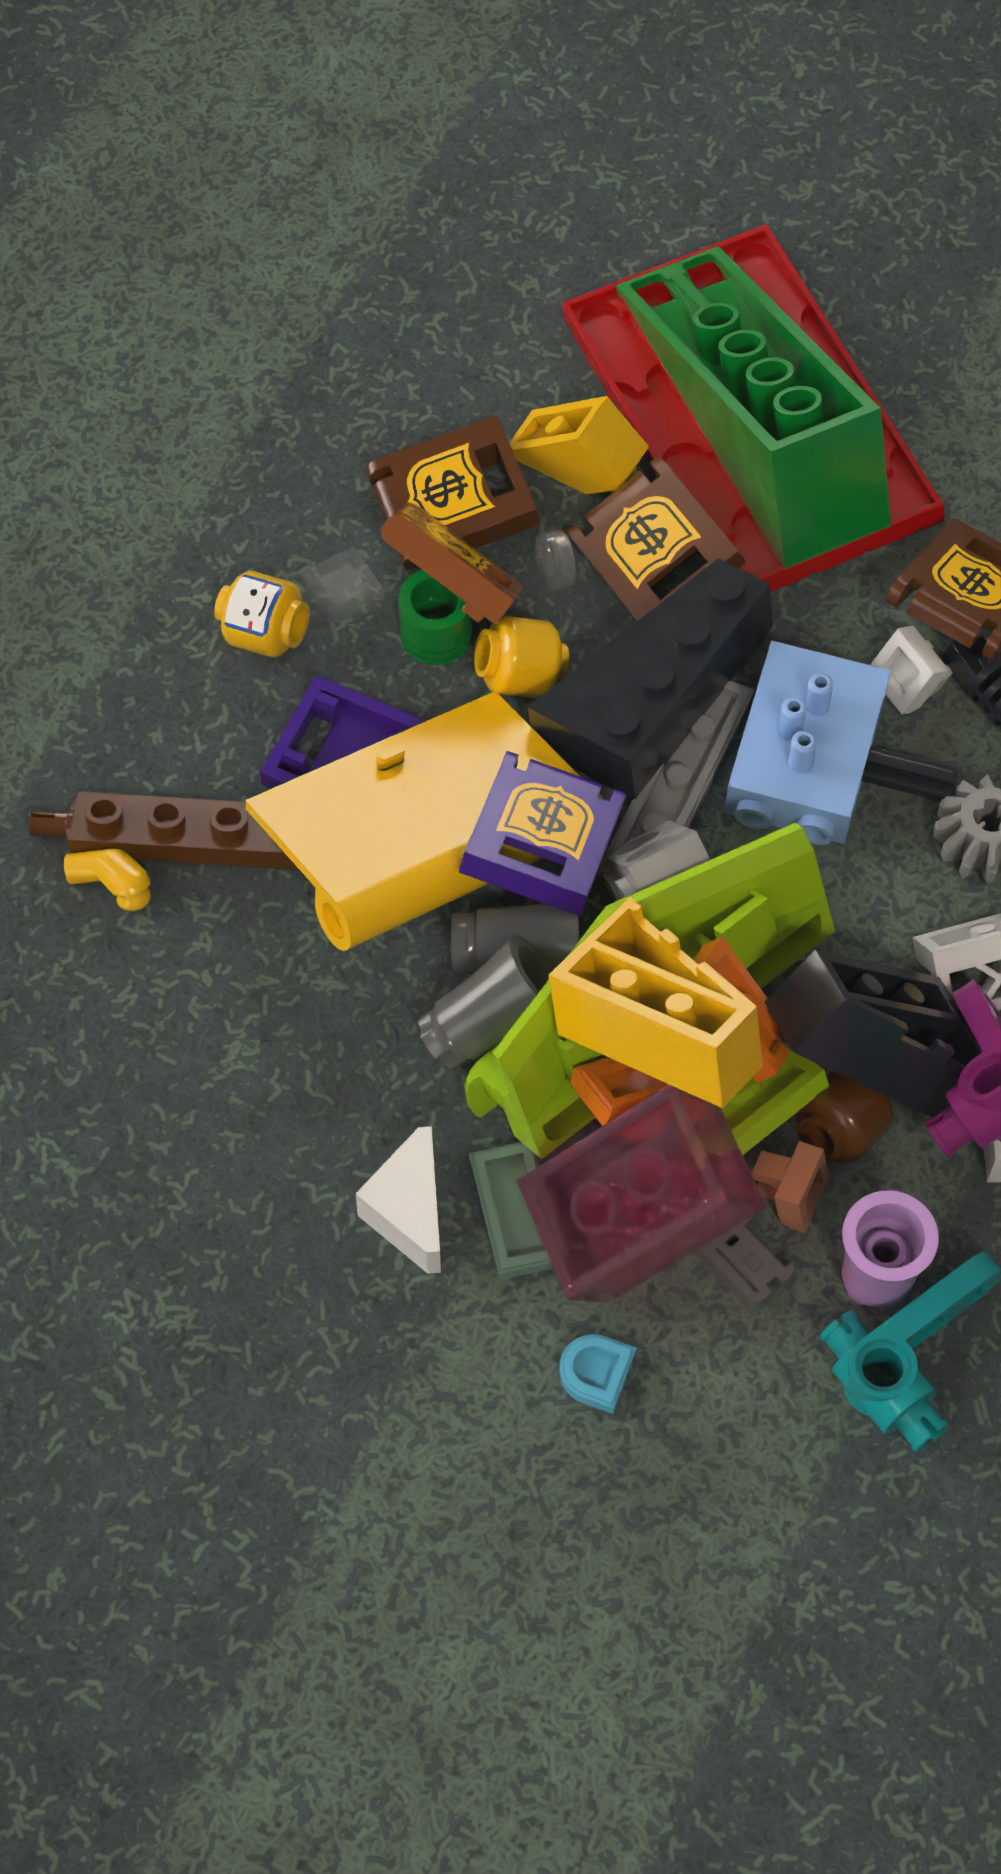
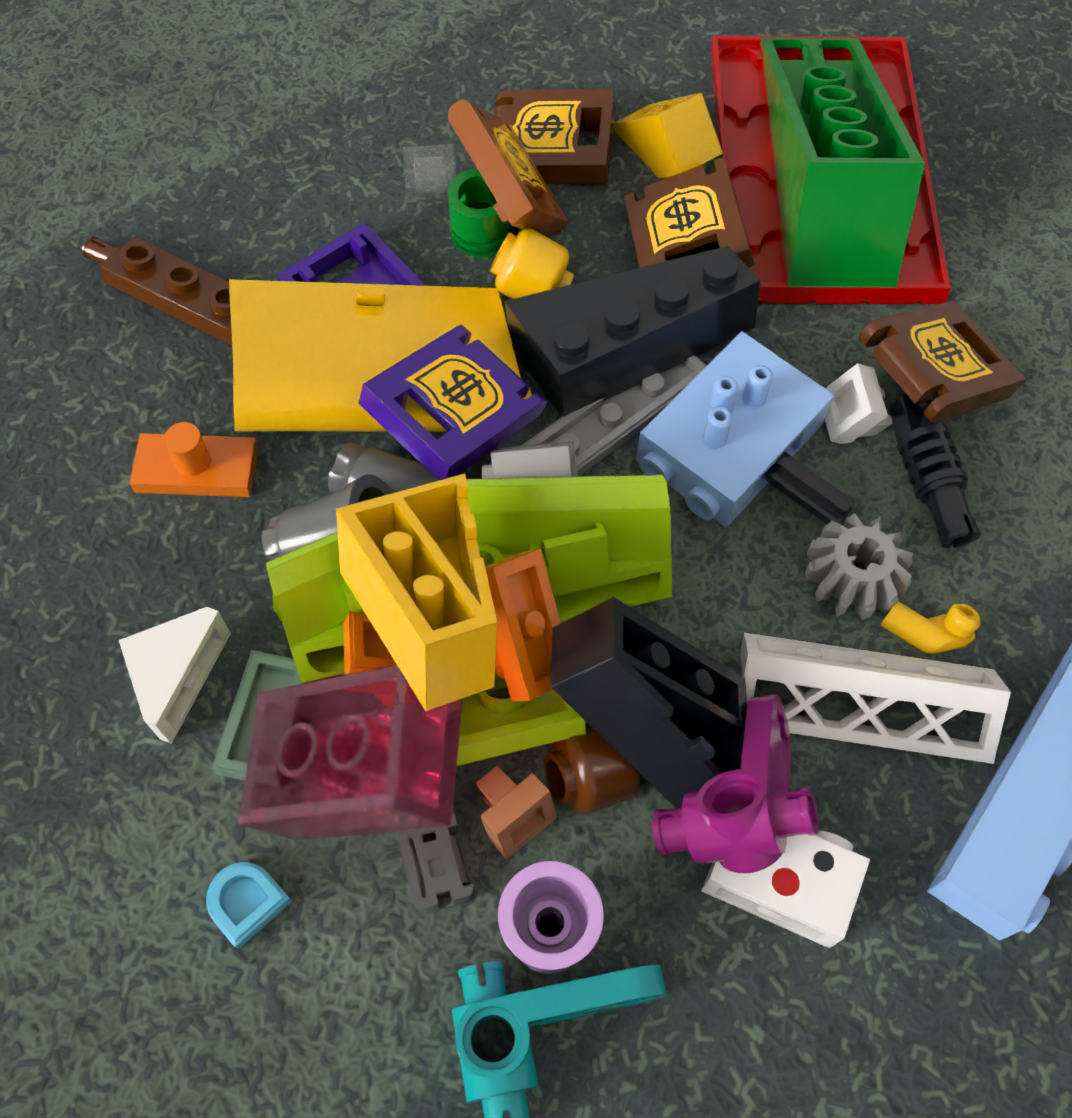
camera: 25 degrees right, 0 degrees up
(115, 870) = (122, 307): yellow arm -> none
(262, 614) = (350, 162): yellow head -> none
(296, 1003) = (194, 463): none -> orange tile
(555, 560) = (602, 211): clear tile -> none

